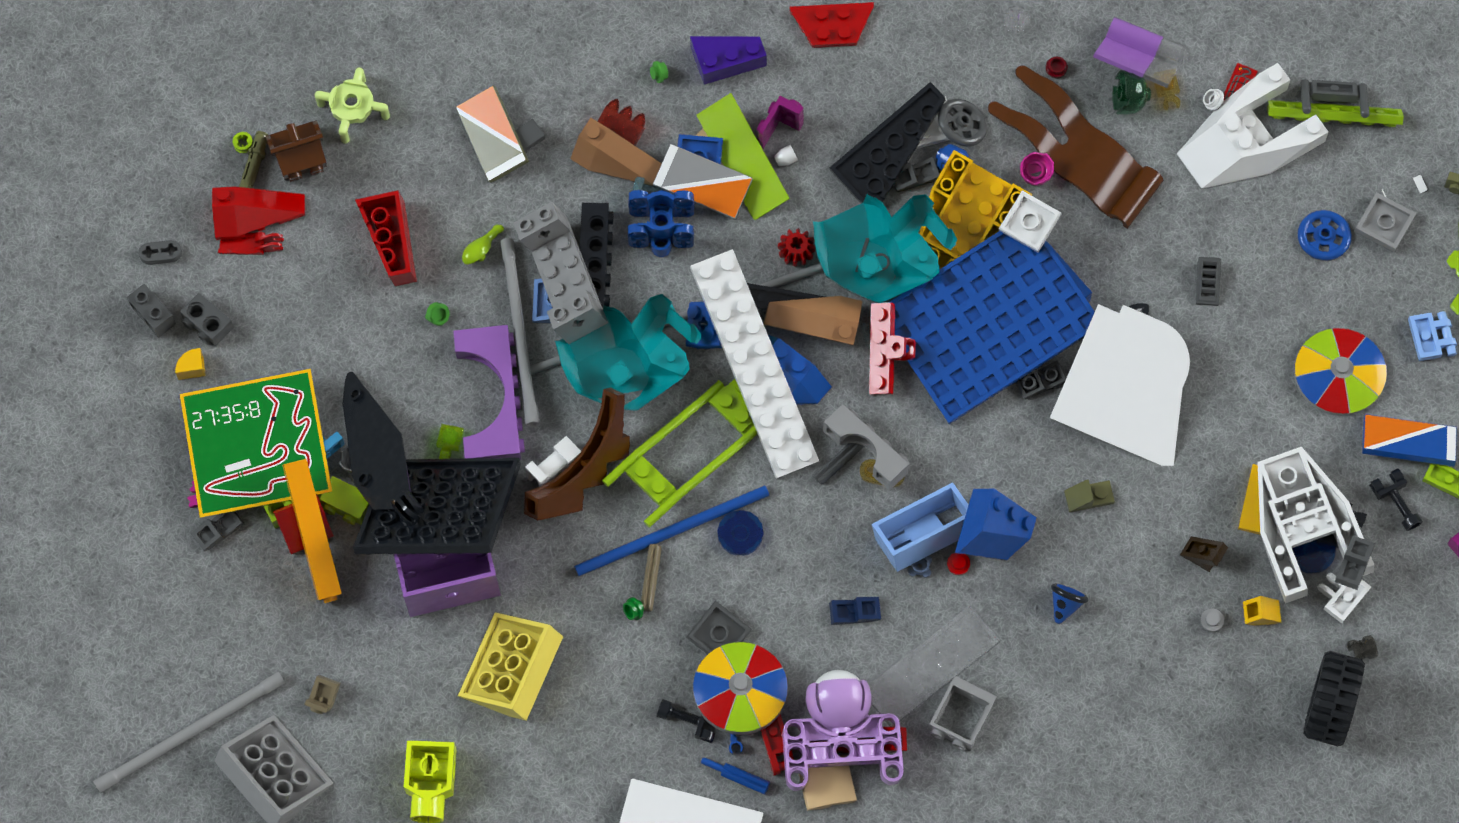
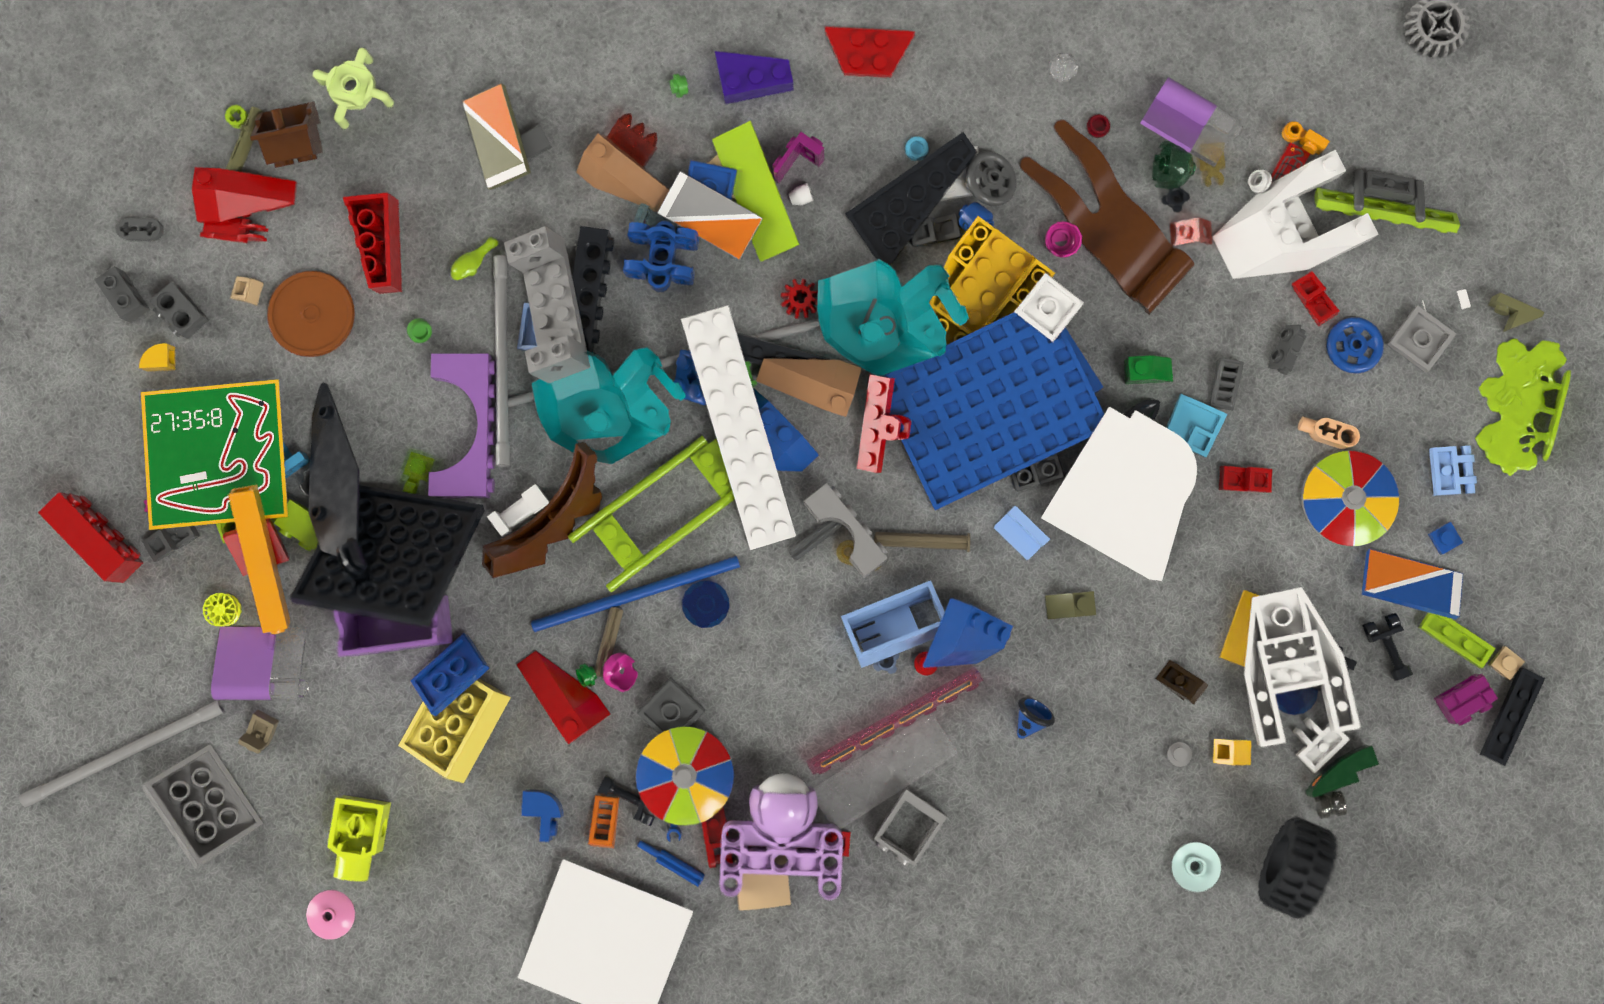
camera: 10 degrees right, 15 degrees up
(145, 530) = (91, 537): none -> red brick
(267, 296) = (247, 290): none -> tan slope
(274, 587) = (222, 609): none -> neon yellow wheel
(316, 634) = (259, 664): none -> medium lavender door
(332, 310) = (311, 313): none -> dark orange brick
(502, 620) = (449, 674): none -> blue tile
(606, 732) = (544, 805): none -> blue brick
(616, 635) = (565, 700): none -> red wedge
(662, 593) = (614, 678): none -> dark pink hair
(666, 759) = (610, 843): none -> orange slope
(855, 611) = (813, 701): dark blue slope -> none
(888, 104) = (916, 148): none -> medium azure tile
(944, 452) = (923, 540): none -> dark tan axle
(944, 613) = (902, 717): none -> clear pink plate
(1034, 434) = (1021, 533): none -> light blue panel
(1132, 275) = (1147, 369): none -> green slope
(1142, 119) = (1176, 205): none -> black plate
(1156, 149) = (1190, 232): none -> clear red bracket
(1187, 318) = (1196, 423): none -> medium azure plate
(1241, 365) = (1245, 479): none -> red slope
(1249, 711) = (1208, 869): none -> light aqua dish
(1256, 59) = (1311, 141): none -> light orange plate
(1263, 235) = (1290, 339): none -> dark grey hinge
(1280, 197) = (1314, 298): none -> red slope
(1308, 319) = (1332, 439): none -> light nougat piece
(1354, 562) = (1341, 724): dark grey slope -> none
(1371, 616) = (1343, 771): none -> dark green slope
(1435, 397) = (1445, 538): none -> blue plate

